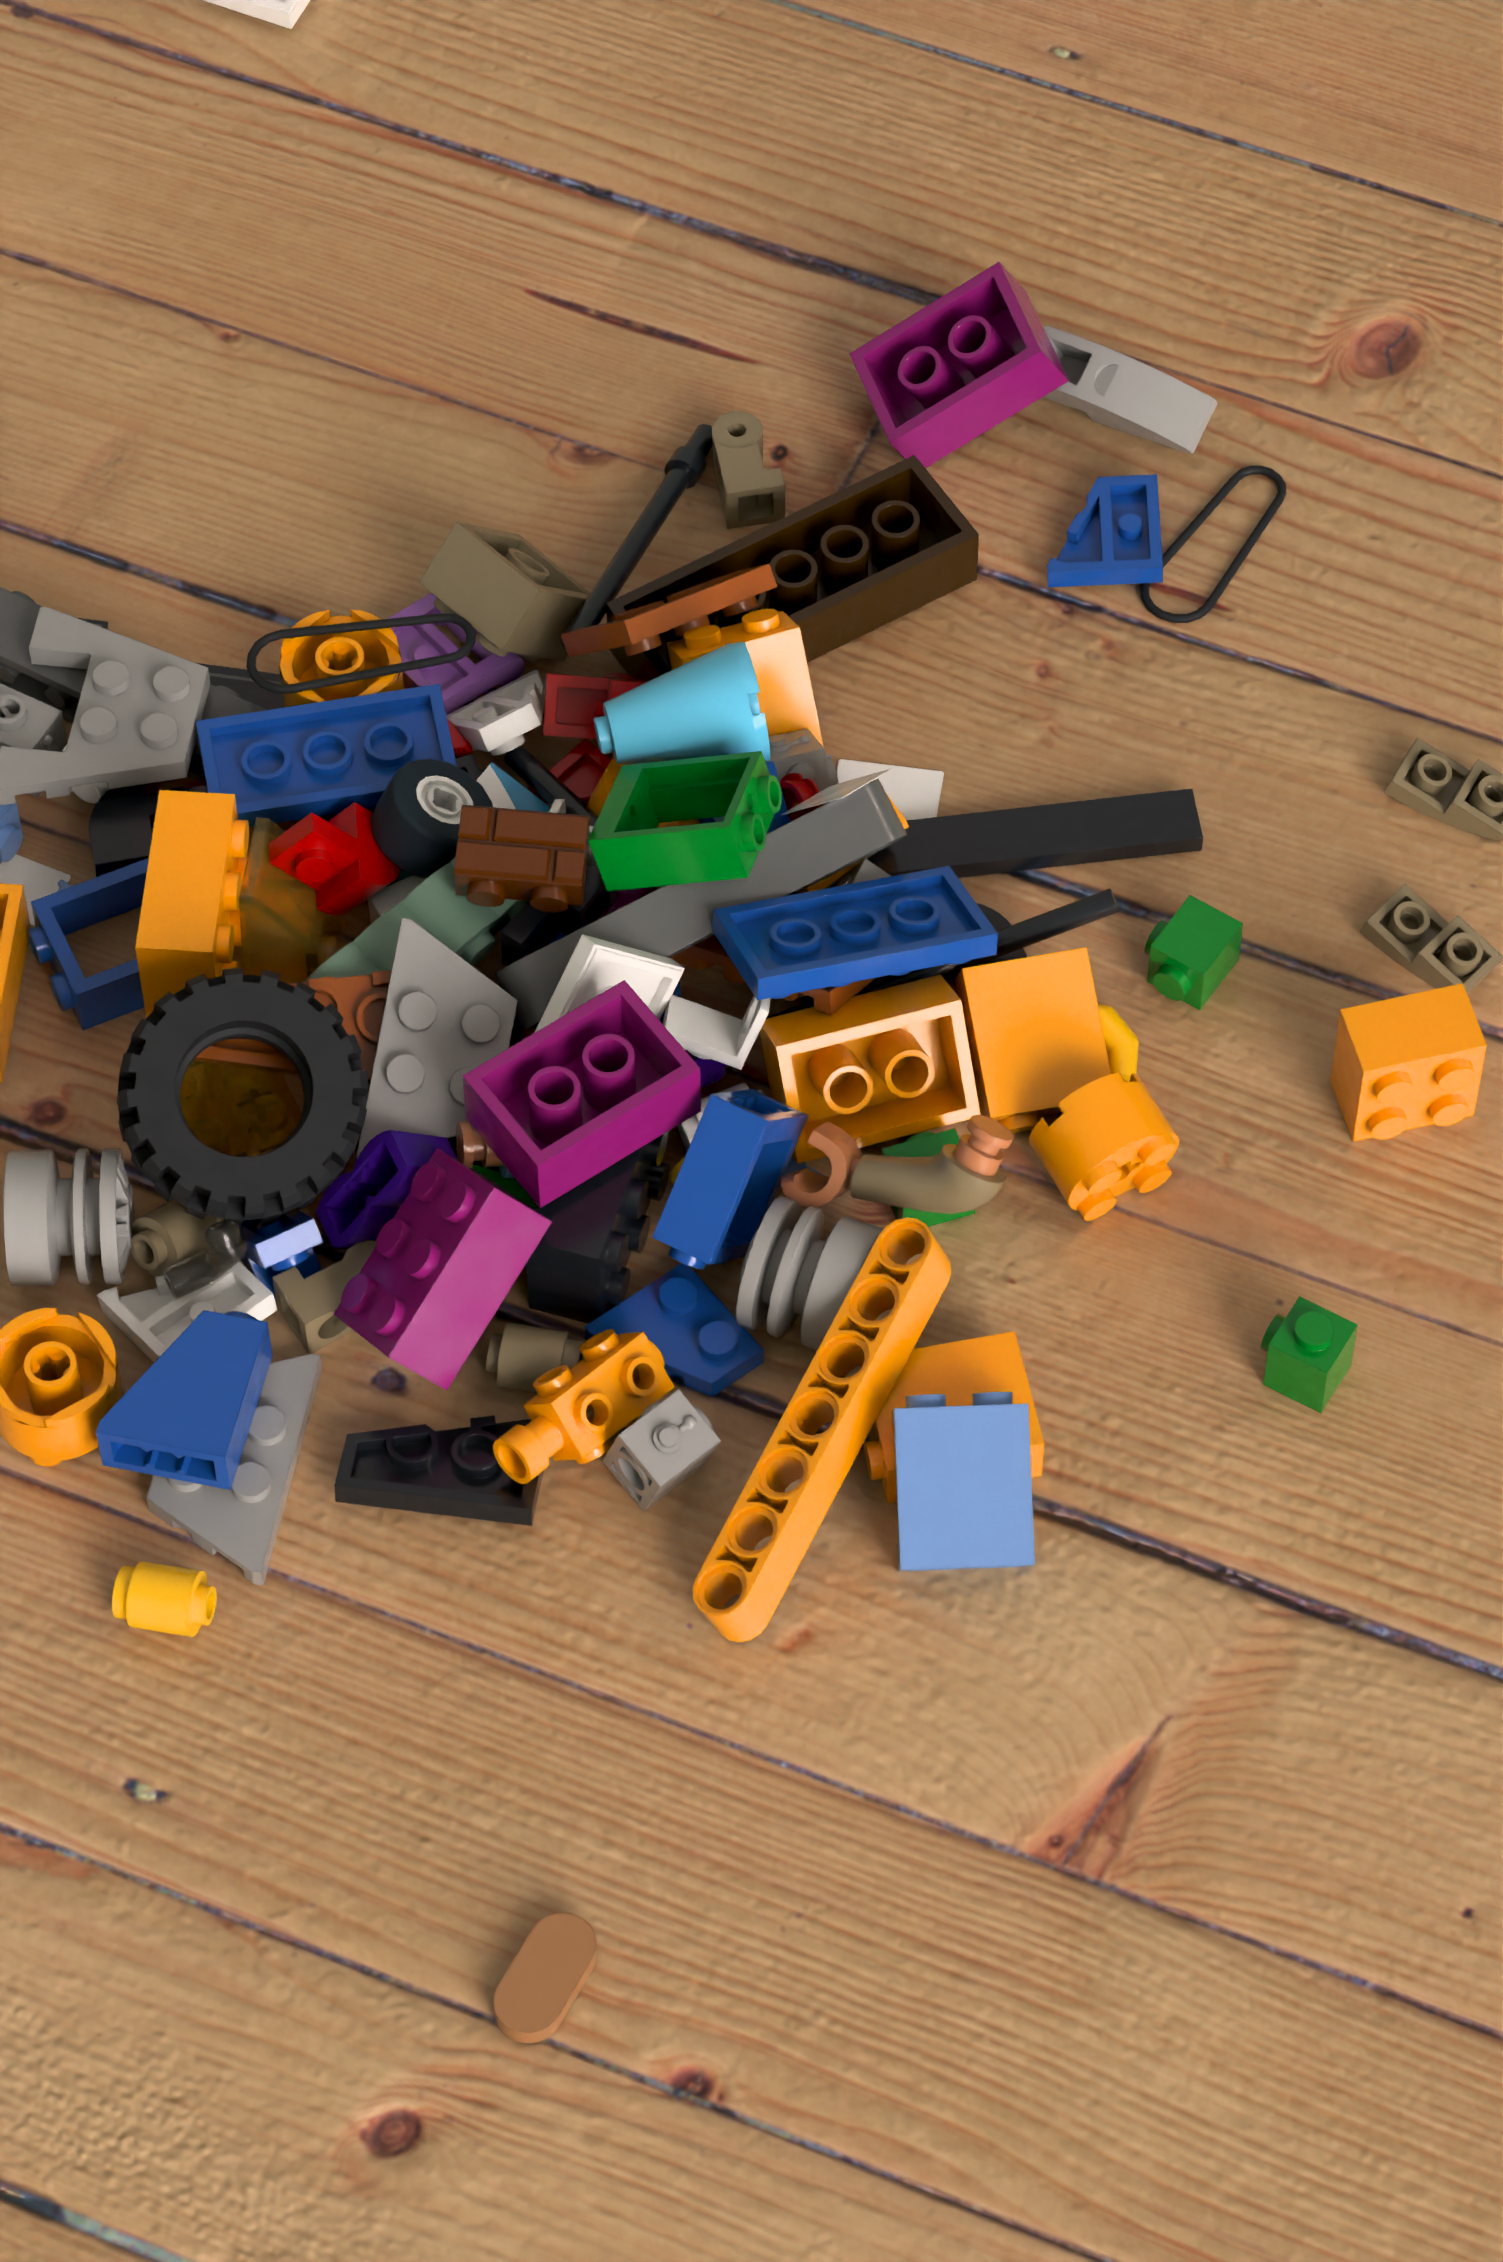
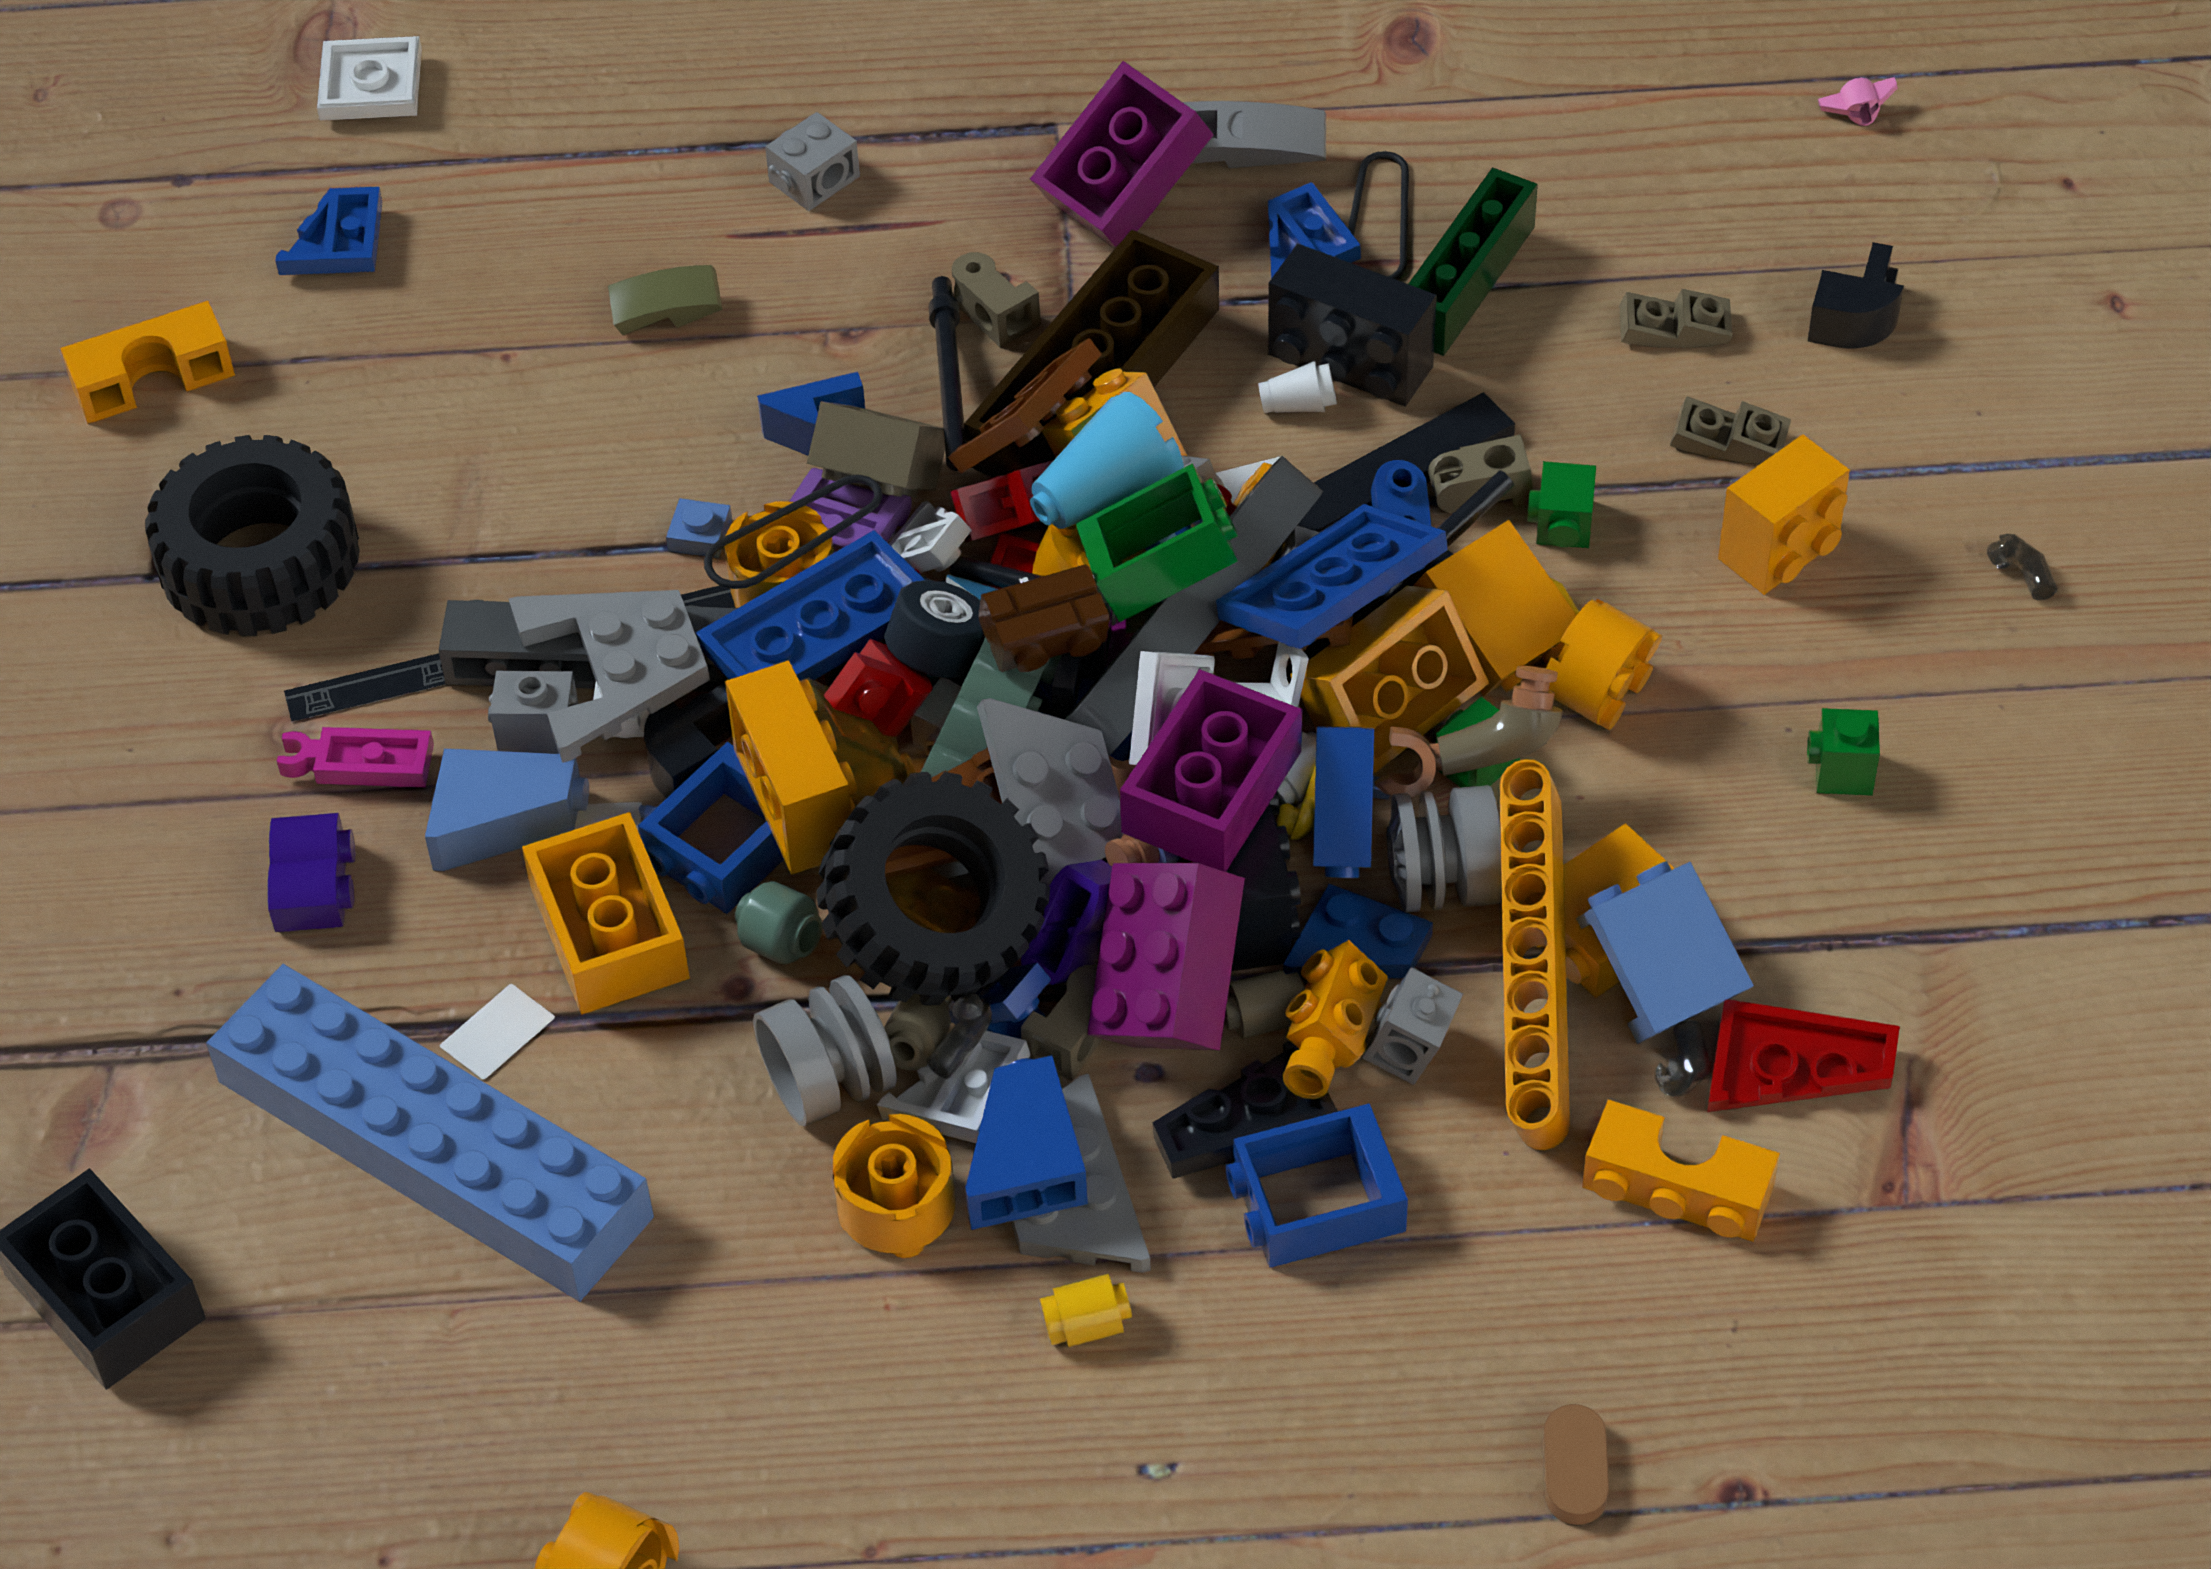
camera: 25 degrees left, 5 degrees down
(97, 1056) = (778, 923): none -> sand green head
(132, 134) = (338, 235): none -> blue wing
(296, 597) = (698, 527): none -> medium blue plate
(418, 333) = (670, 293): none -> olive slope
(477, 1524) = (1306, 1143): none -> blue window
(489, 510) = (791, 413): none -> blue slope
(653, 241) = (812, 161): none -> light grey head
(836, 792) = (1257, 476): white sticker -> none
(872, 1768) = (1720, 1194): none -> light orange arch
(928, 1621) = (1689, 1066): none -> clear smoke arm
(999, 706) = (1299, 390): none -> white cone
(1022, 882) = (1408, 501): none -> blue plate
(1042, 1658) = (1796, 1055): none -> red wing
(1085, 657) = (1357, 320): none -> black brick
(1143, 880) = (1464, 471): none -> dark tan leg
(1261, 633) = (1476, 251): none -> dark green brick

